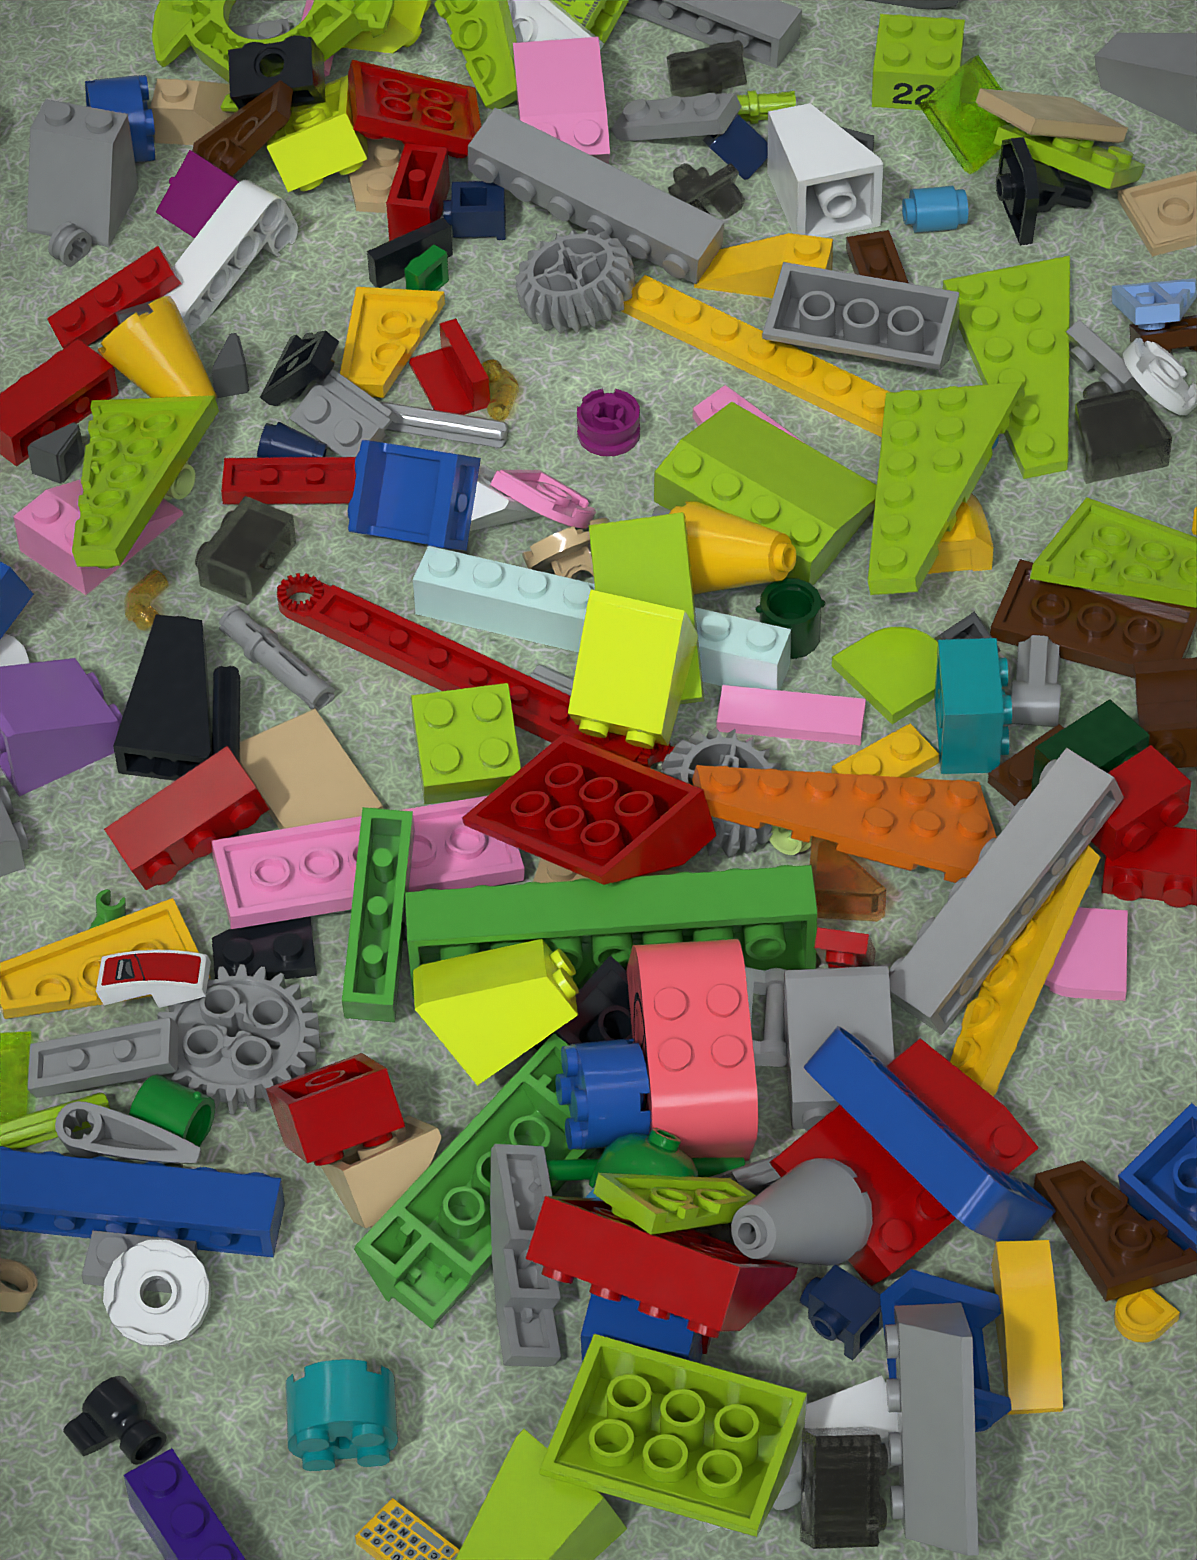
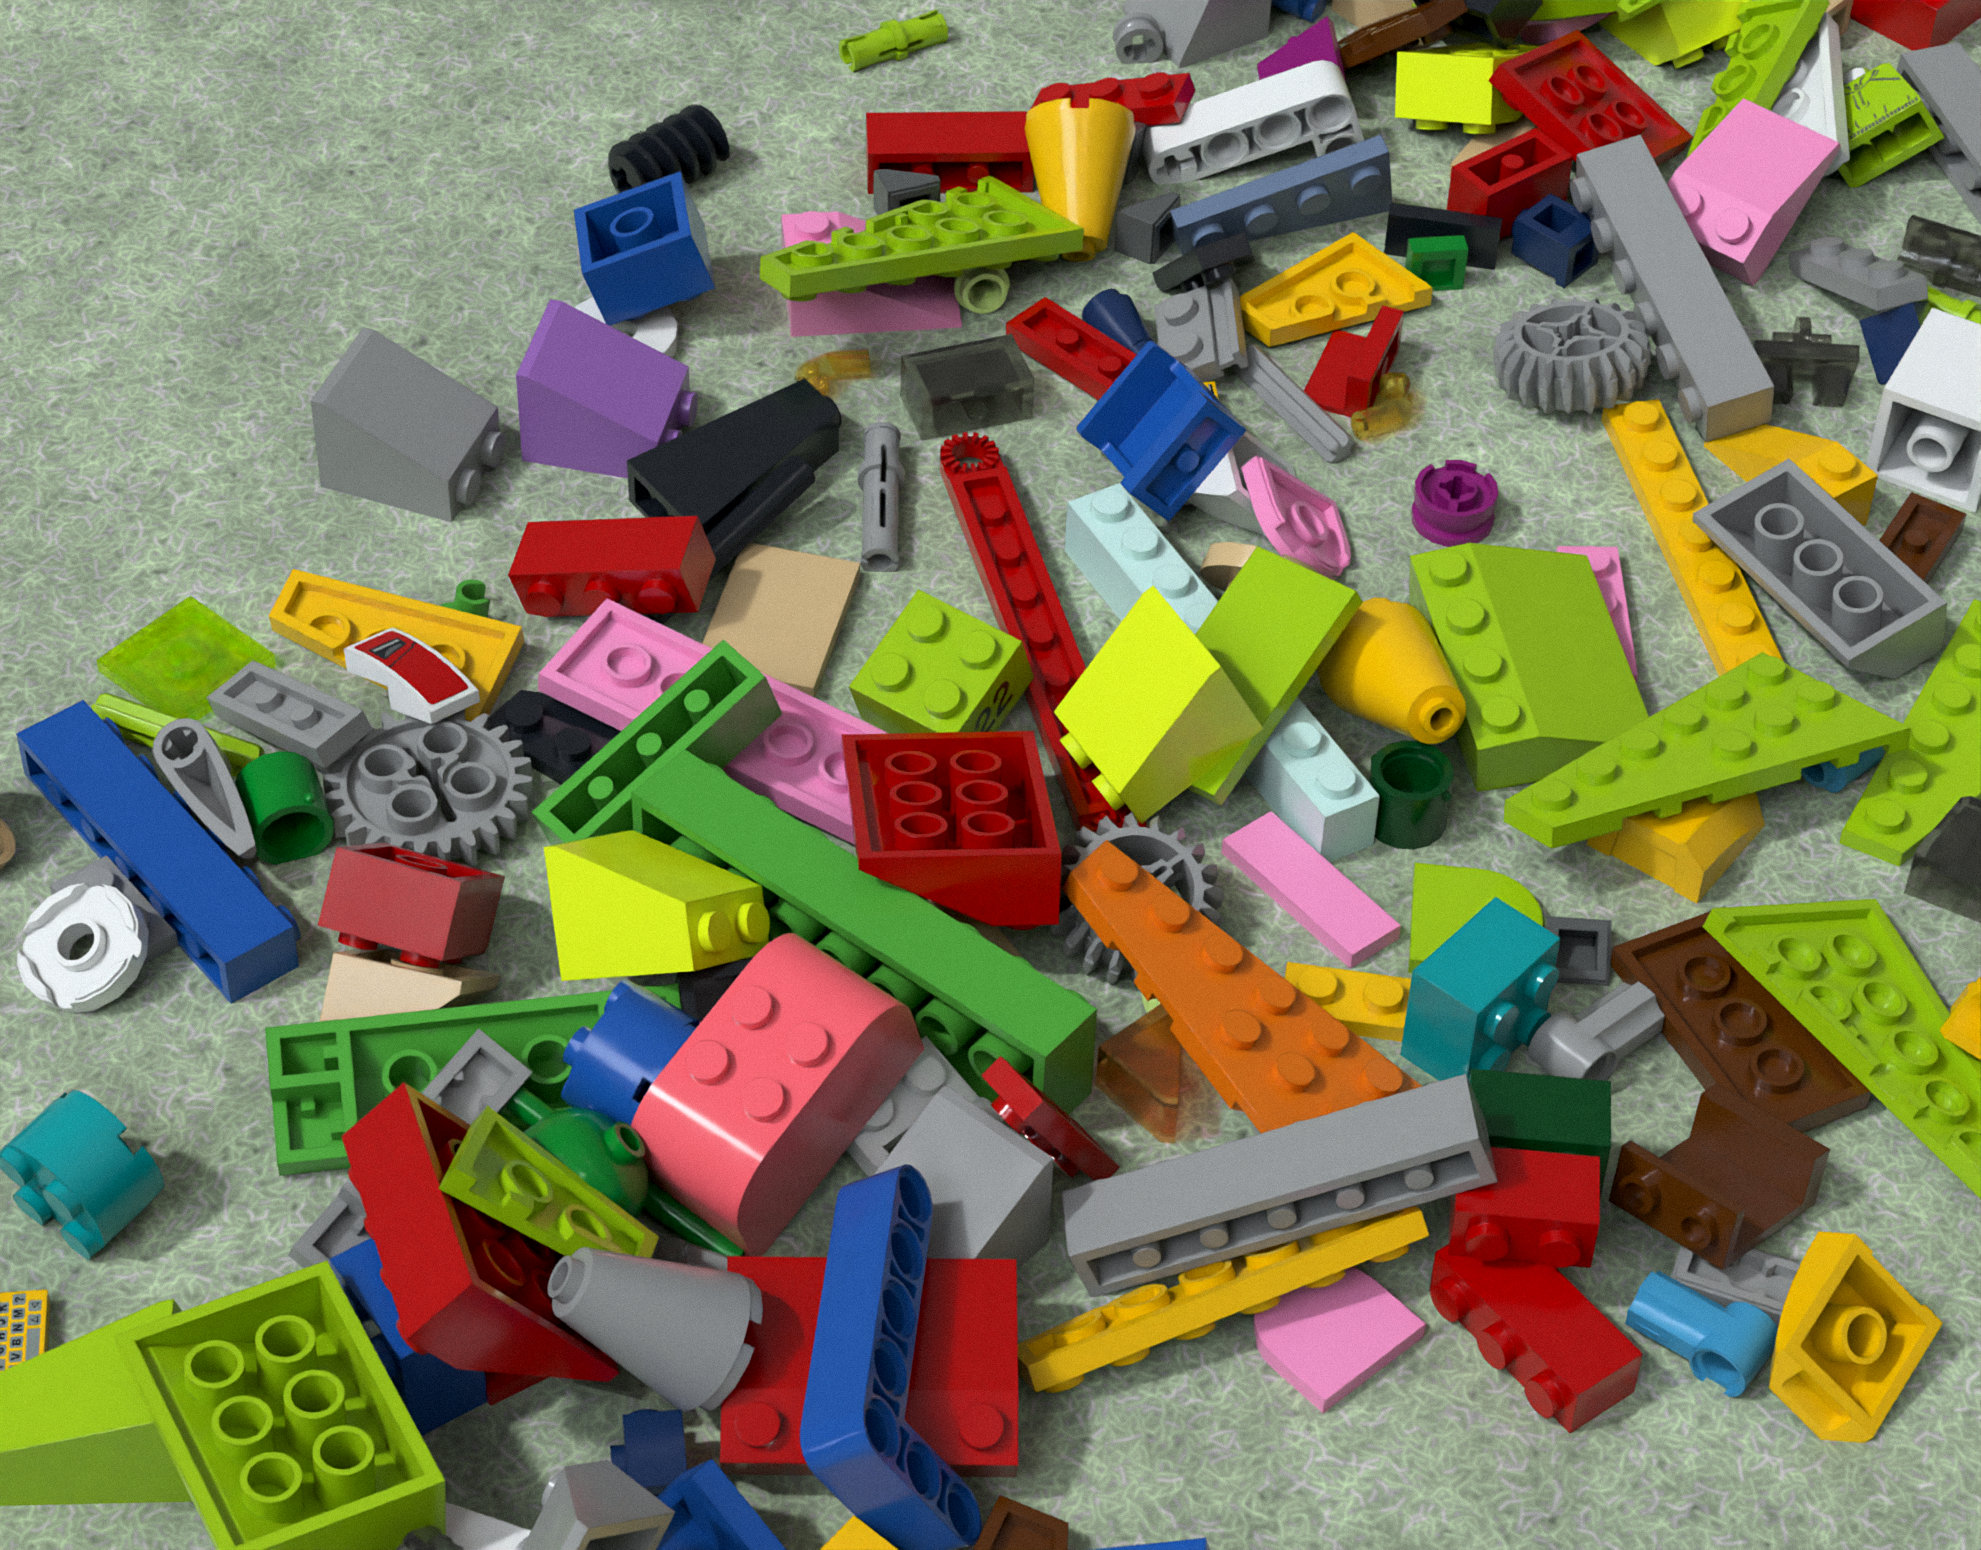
camera: 40 degrees right, 5 degrees down
(300, 292) = (1304, 196): none -> sand blue wing

